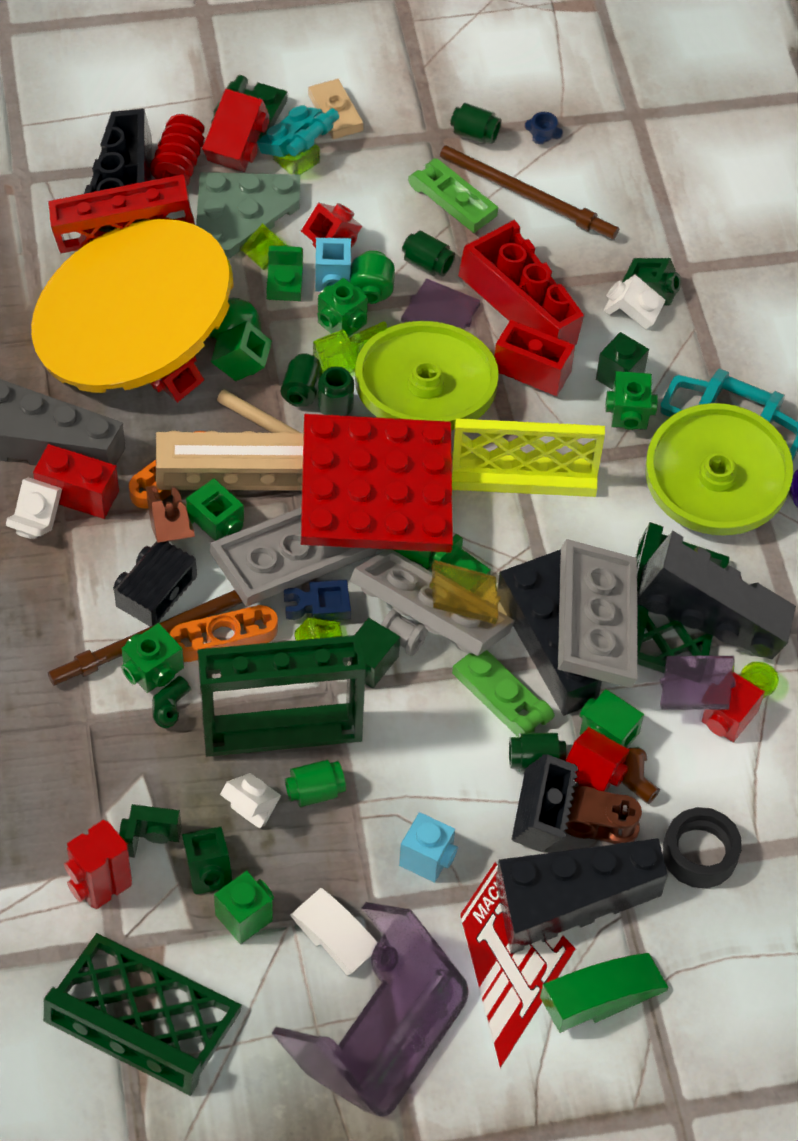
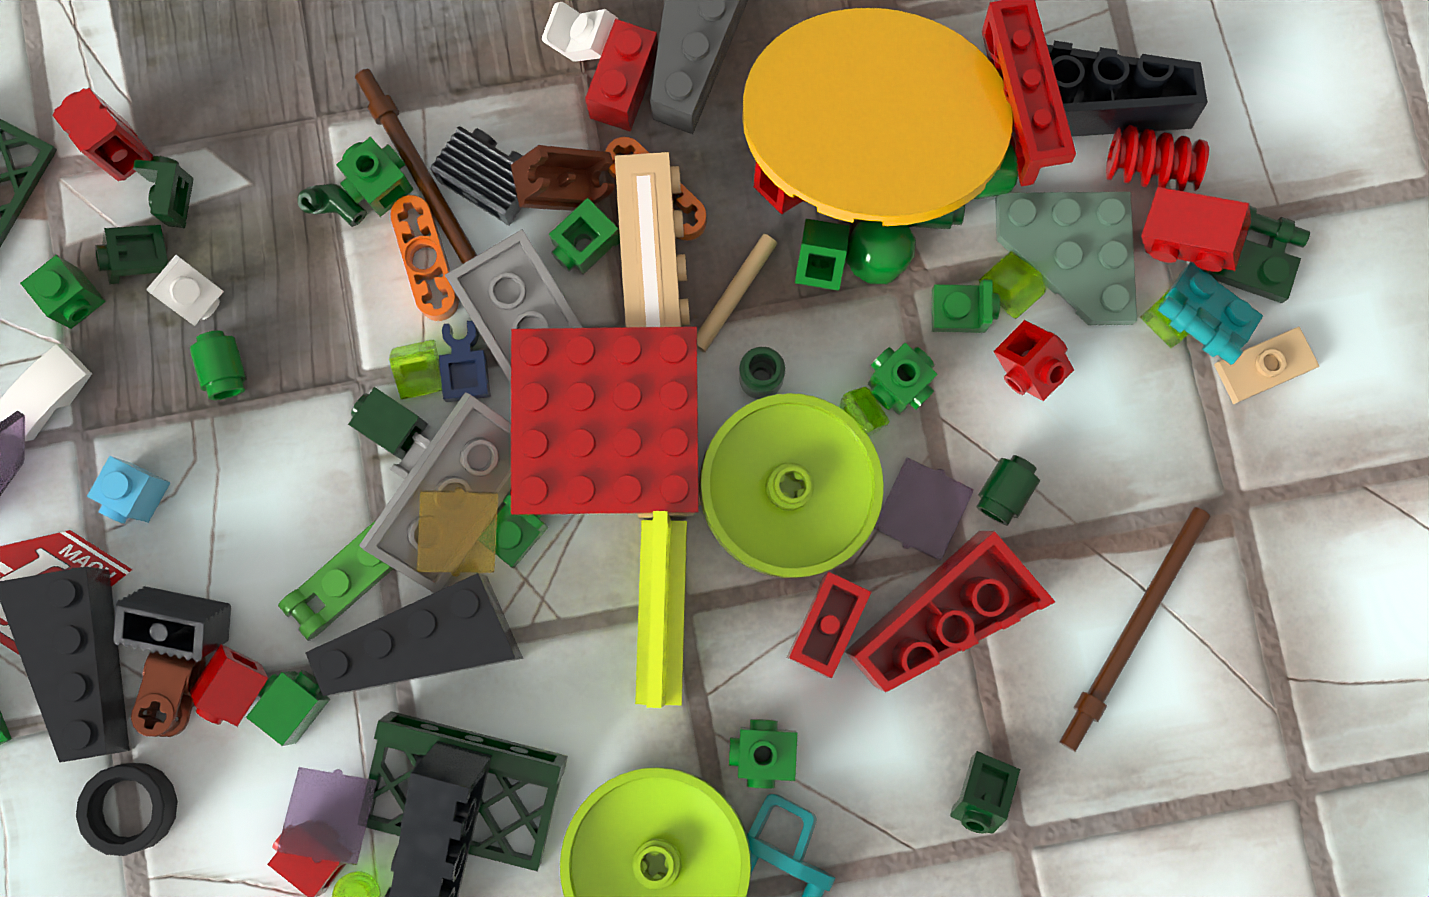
camera: 95 degrees right, 25 degrees up
(277, 666) = (267, 306): dark green window -> none
(301, 380) = (790, 332): dark green brick -> none
(332, 261) = (969, 363): medium azure brick -> none
(335, 351) = (834, 374): clear neon green slope -> none
(374, 275) = (958, 415): green head -> none
(454, 195) = (1117, 525): bright green plate -> none
(475, 123) = (1249, 555): dark green brick -> none
(531, 746) = (252, 617): dark green brick -> none
(543, 127) = (1268, 656): dark blue plate -> none
(598, 614) = (400, 692): light grey plate -> none
(621, 355) = (830, 744): dark green brick -> none
(635, 300) = (944, 767): white bracket -> none
(635, 779) = (227, 734): reddish brown arm -> none

